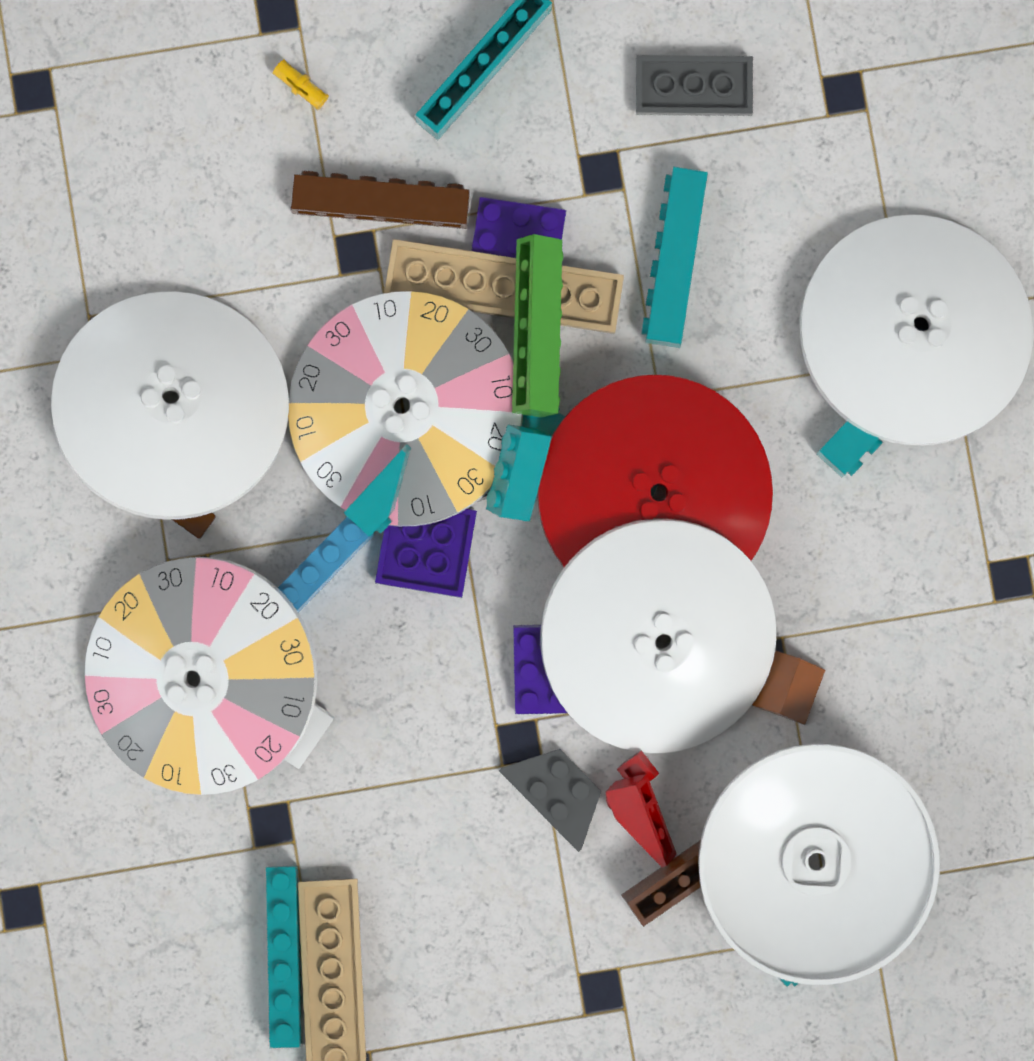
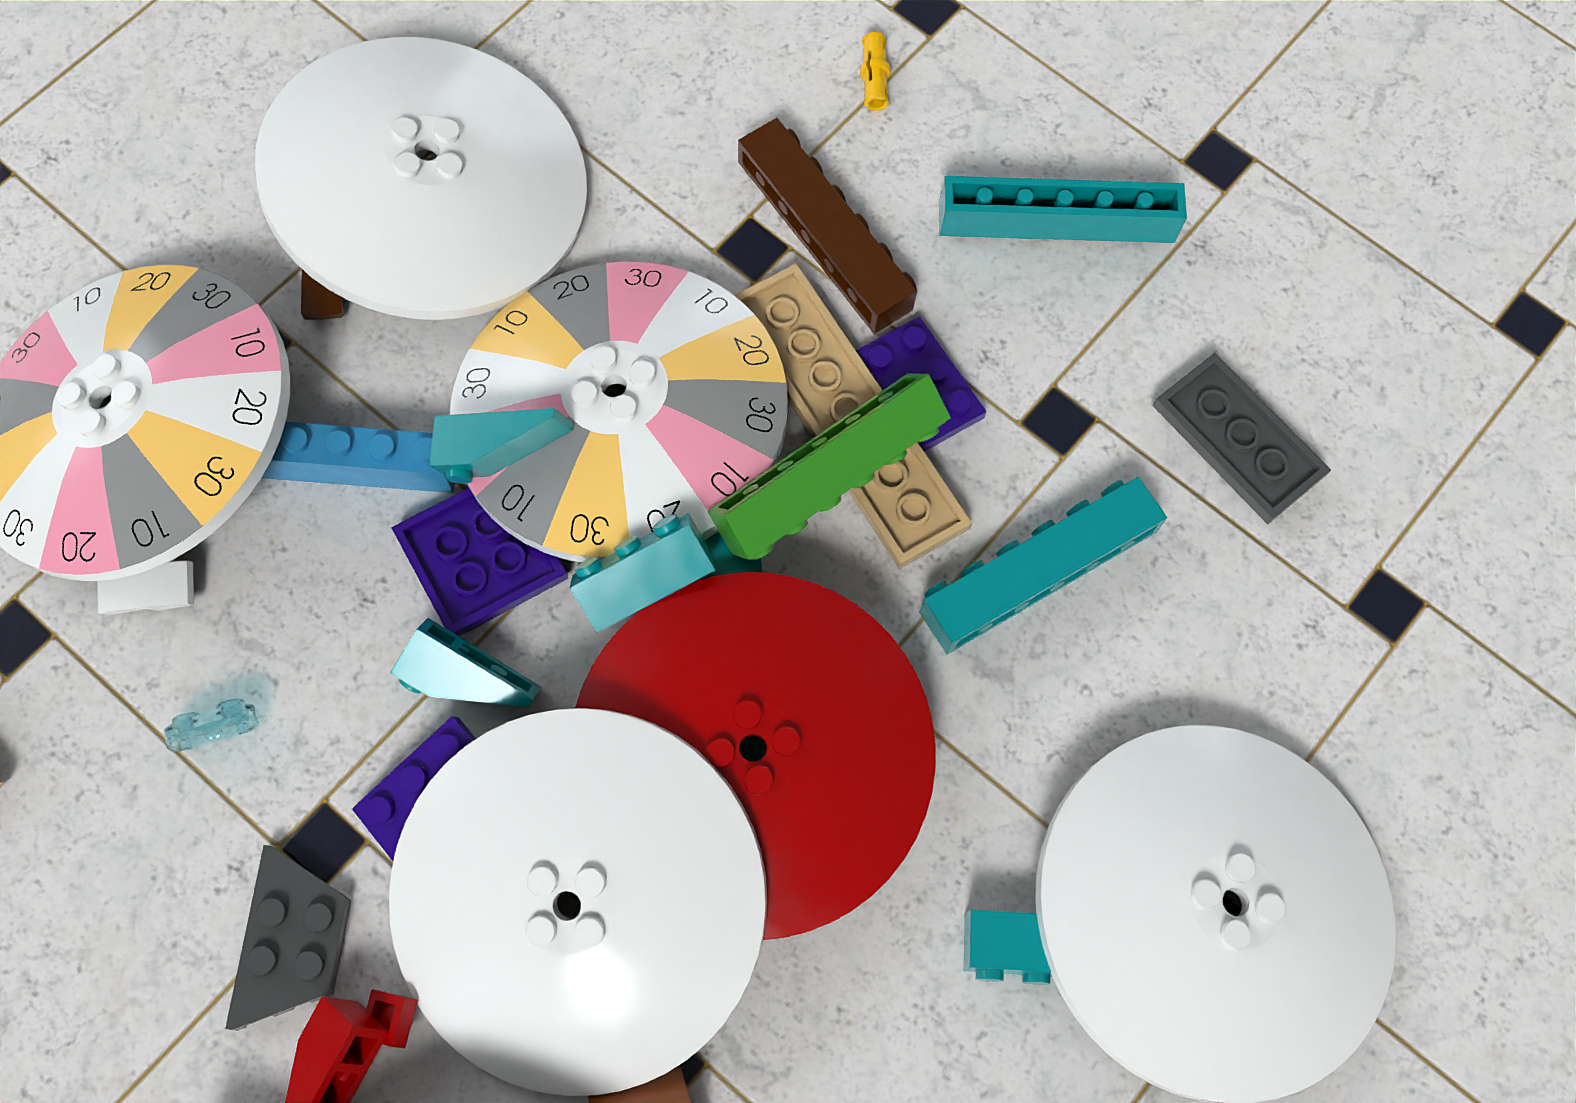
camera: 50 degrees right, 15 degrees down
(416, 740) = (197, 730): none -> clear light blue plate
(486, 607) = (452, 668): none -> slope

